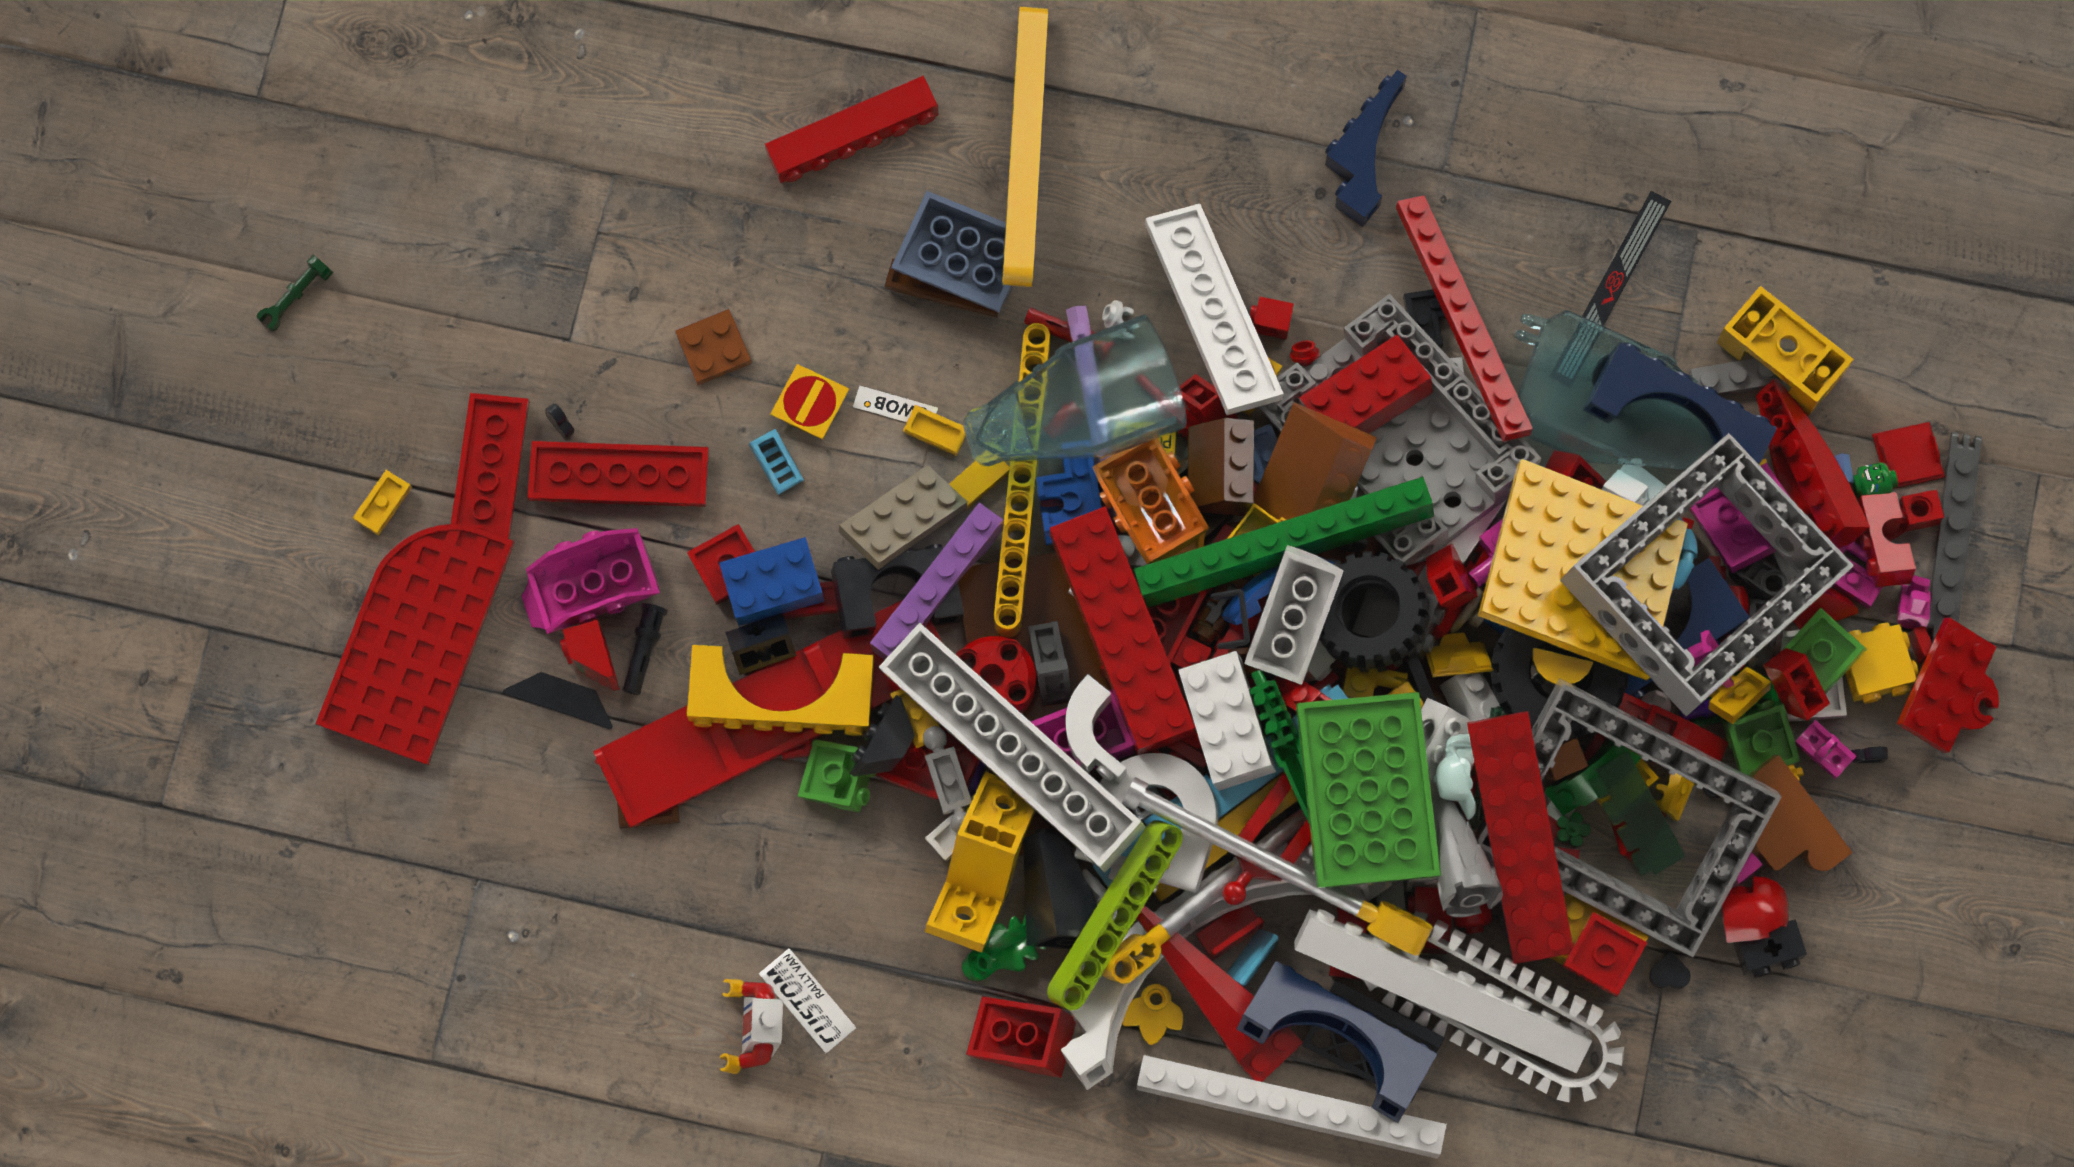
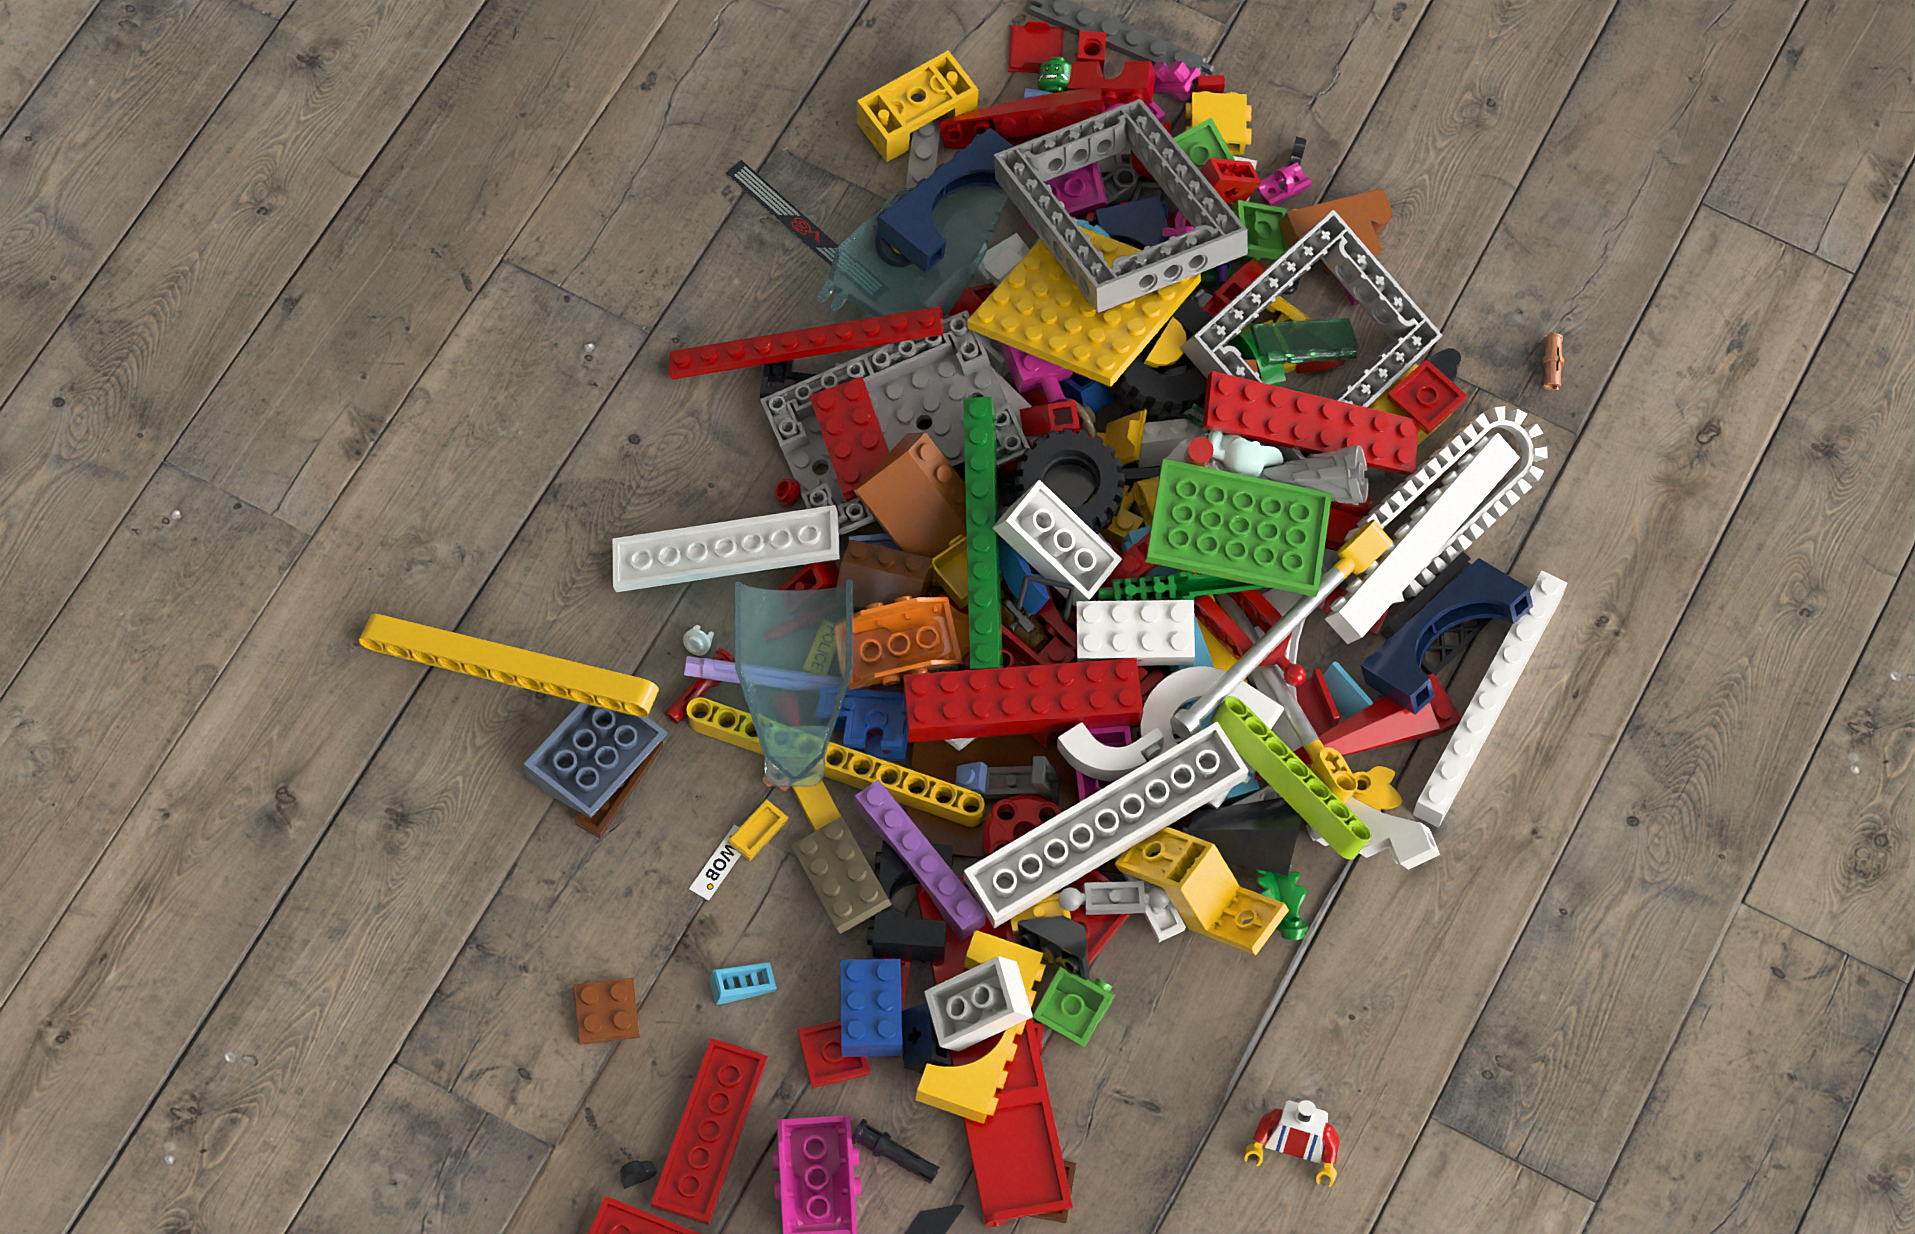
camera: 80 degrees left, 10 degrees down
(589, 652) = (892, 1195): red slope -> none
(792, 676) = (978, 1003): none -> white brick
(807, 1000) = (1295, 1084): white sticker -> none
(809, 401) = (694, 933): piece -> none
(852, 130) = (429, 823): red brick -> none
(1021, 1036) = (1366, 908): red slope -> none
(1041, 612) = (972, 777): none -> medium blue plate
(1272, 317) = (746, 503): red brick -> none
(1356, 150) = (610, 393): dark blue arch -> none
(1437, 726) = (1199, 452): none -> red piece
(1710, 1085) = (1553, 361): none -> nougat pin
(1755, 910) = (1417, 276): red brick -> none
(1788, 946) = (1444, 266): black brick -> none
(1951, 687) = (1258, 73): red plate -> none

